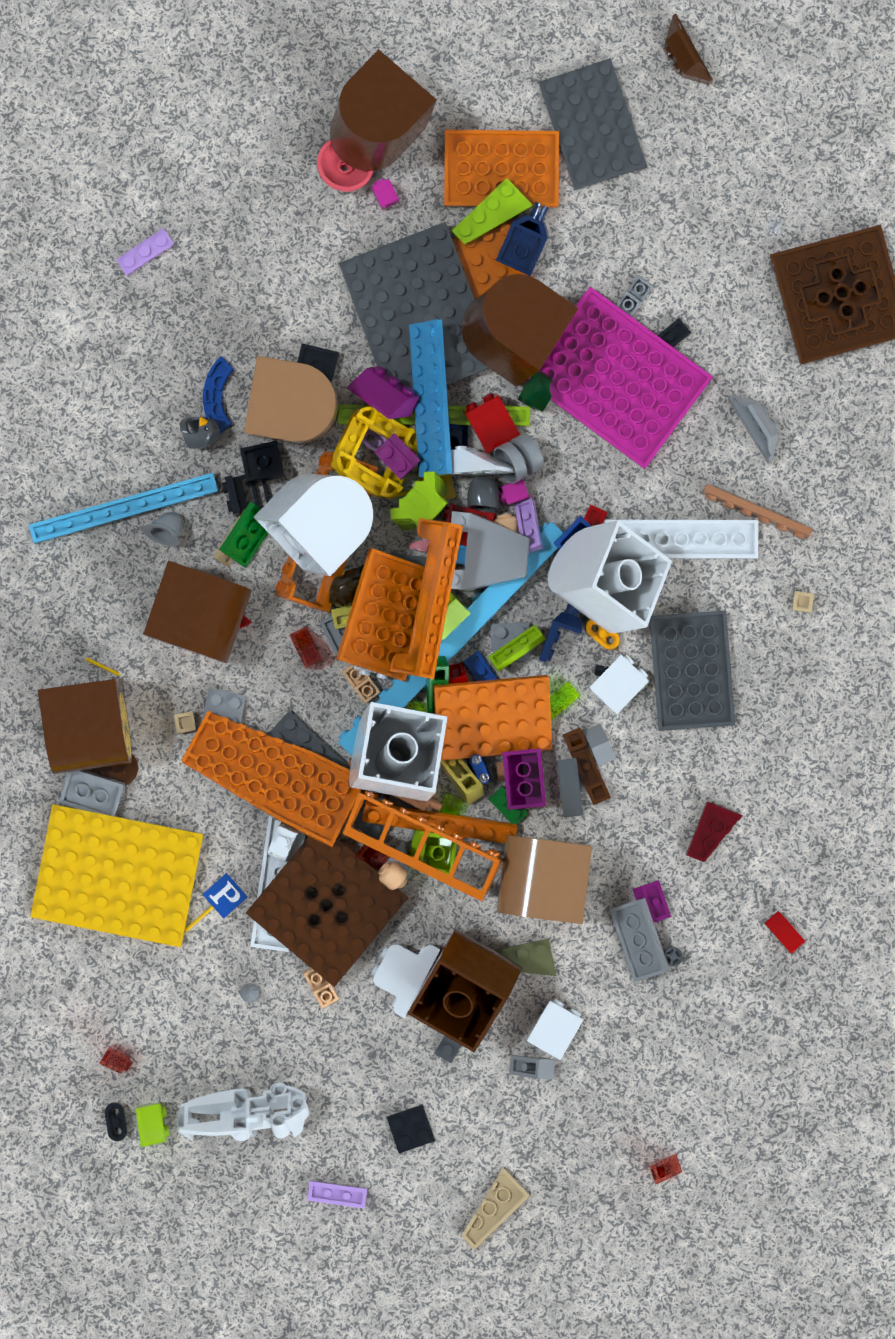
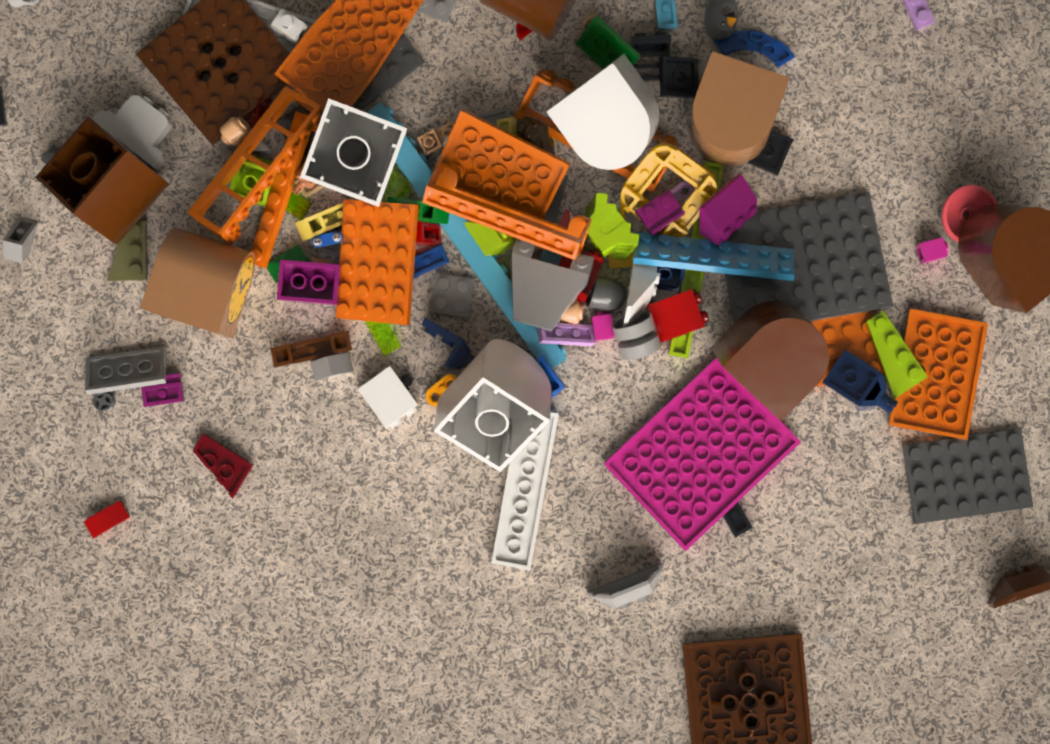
camera: 105 degrees right, 0 degrees up
(306, 647) = (483, 89): clear red slope -> none
(321, 988) = (135, 43): light nougat slope -> none
(489, 767) = (318, 253): dark grey piece -> none
(516, 648) = (443, 299): lime plate -> none
(537, 391) = (702, 367): dark green slope -> none
(555, 1029) = (53, 269): white panel -> none
(569, 787) = (294, 328): dark grey slope -> none
(595, 516) = (563, 404): red plate -> none
(634, 295) = (783, 486): light grey slope -> none
(692, 670) = (389, 474): dark grey plate -> none
(764, 516) = (533, 577): nougat plate -> none
(802, 602) = (438, 600): tan plate -> none

